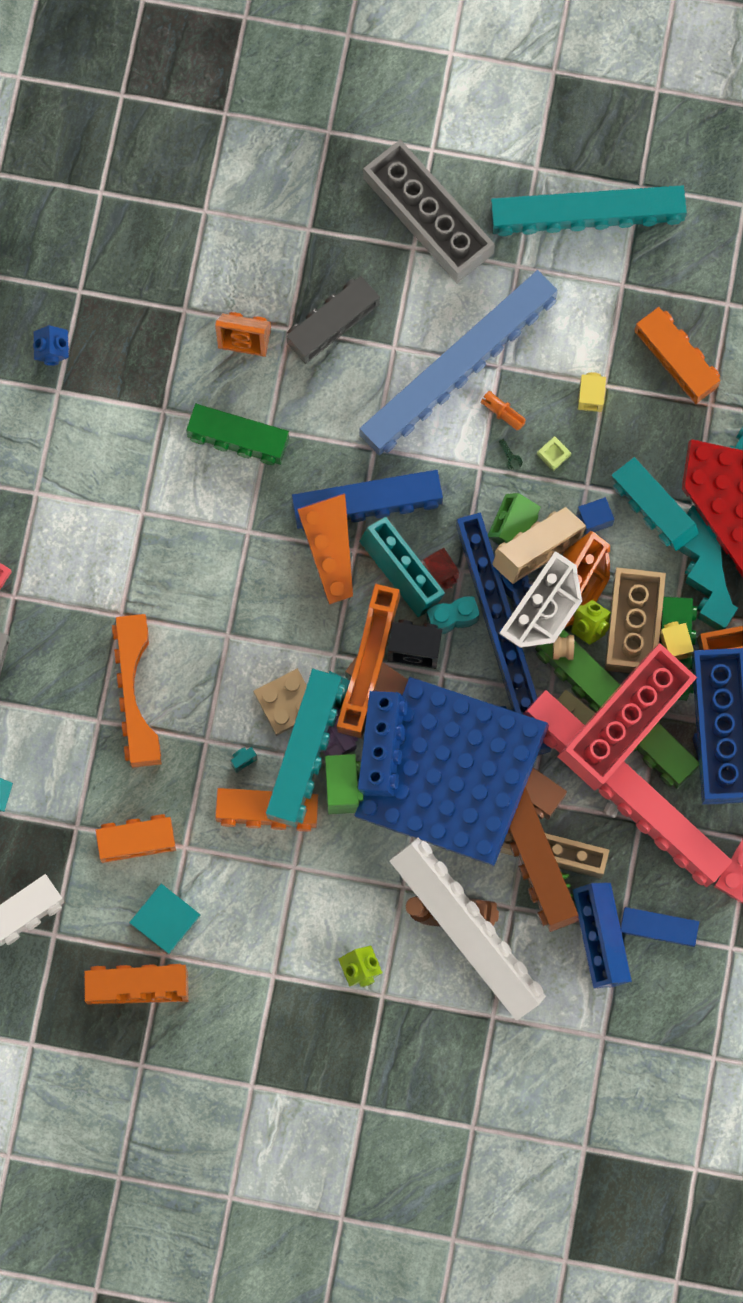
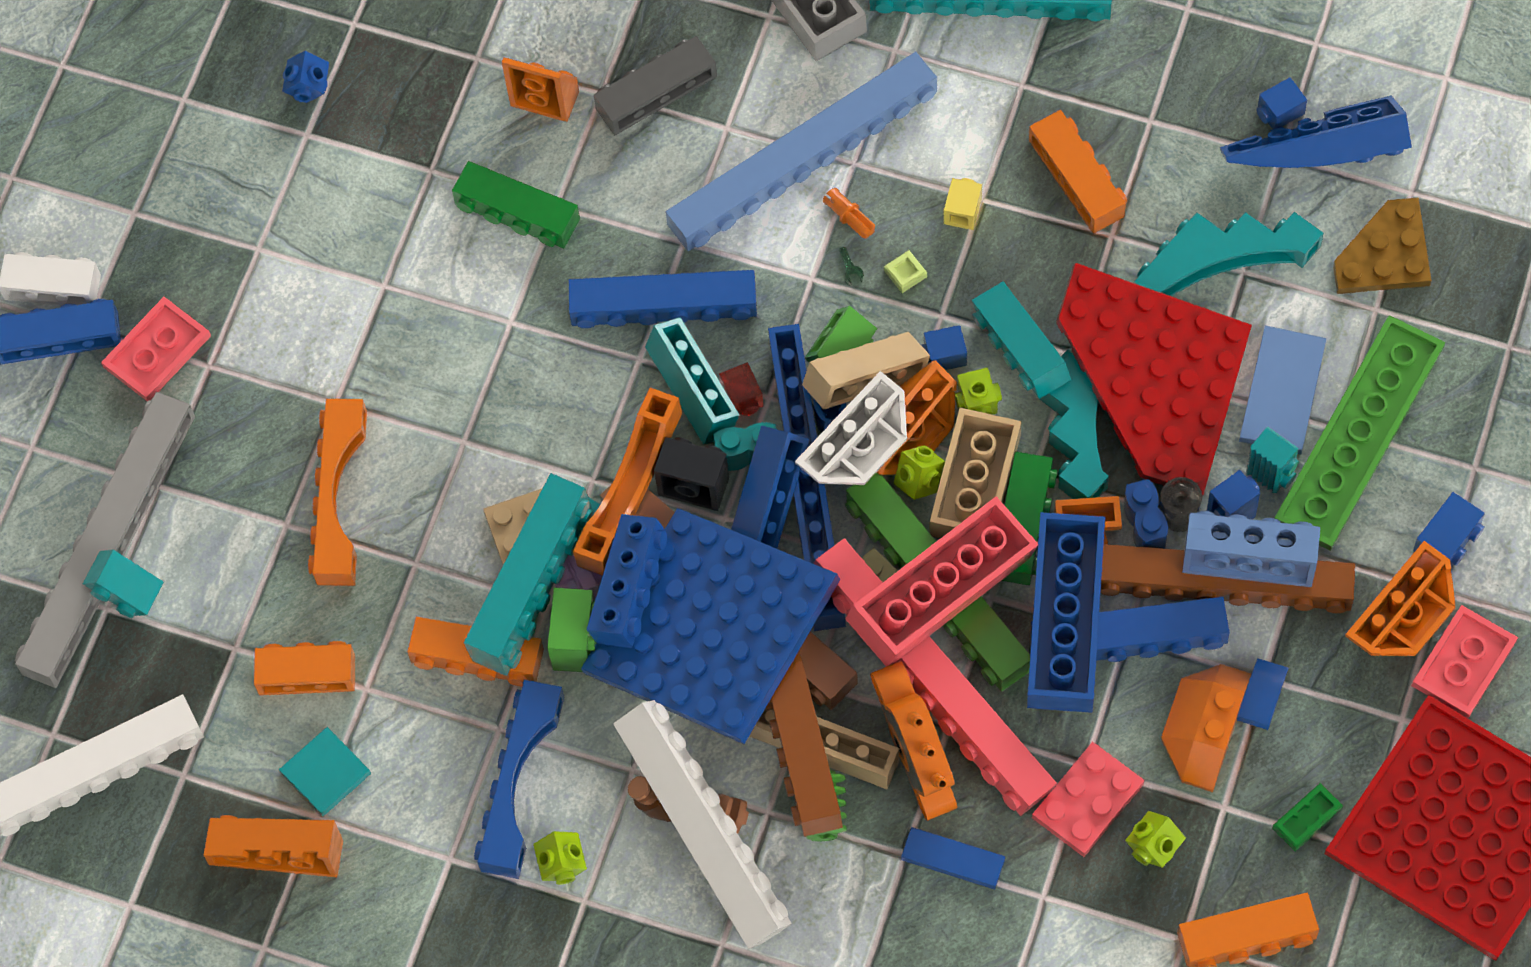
camera: 15 degrees right, 10 degrees down
(243, 758) = (456, 588): teal plate -> none
(322, 856) = (536, 716): none -> blue arch
(329, 543) = (603, 330): orange wedge -> none
(478, 651) = (769, 486): none -> blue brick
(564, 647) = (877, 495): tan wheel -> none
(602, 935) = (875, 856): blue brick -> none
(623, 841) = (916, 739): none -> orange piece
(627, 544) = (978, 392): none -> lime brick
(677, 640) = (1023, 502): light yellow brick -> none

